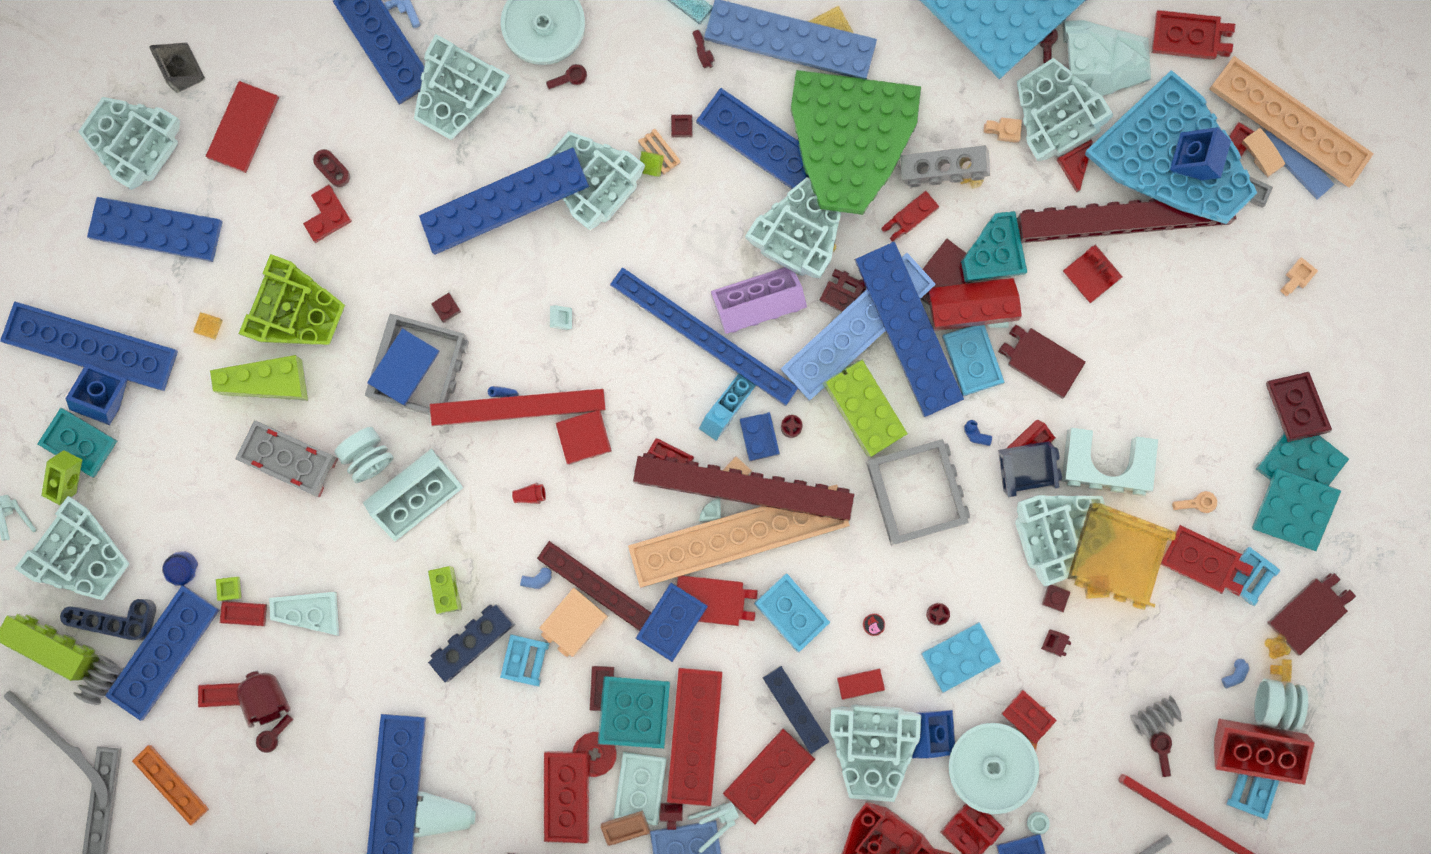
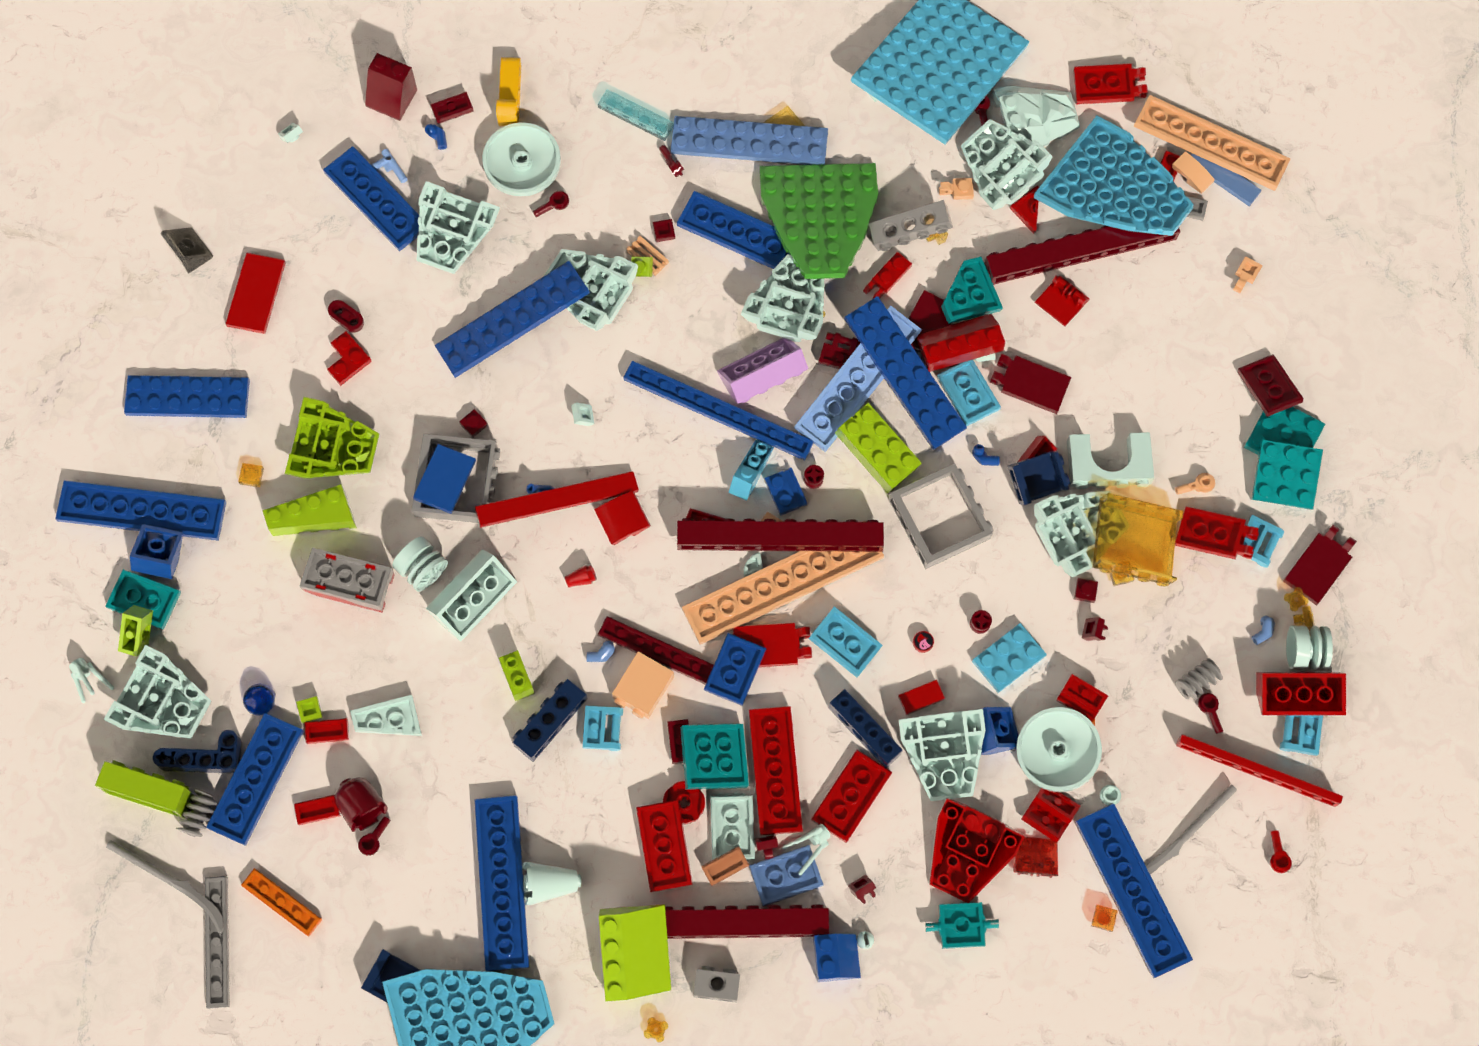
camera: 15 degrees left, 10 degrees down
(130, 139) = (154, 318): light aqua wedge -> none
(1201, 154) = (1137, 178): blue slope -> none

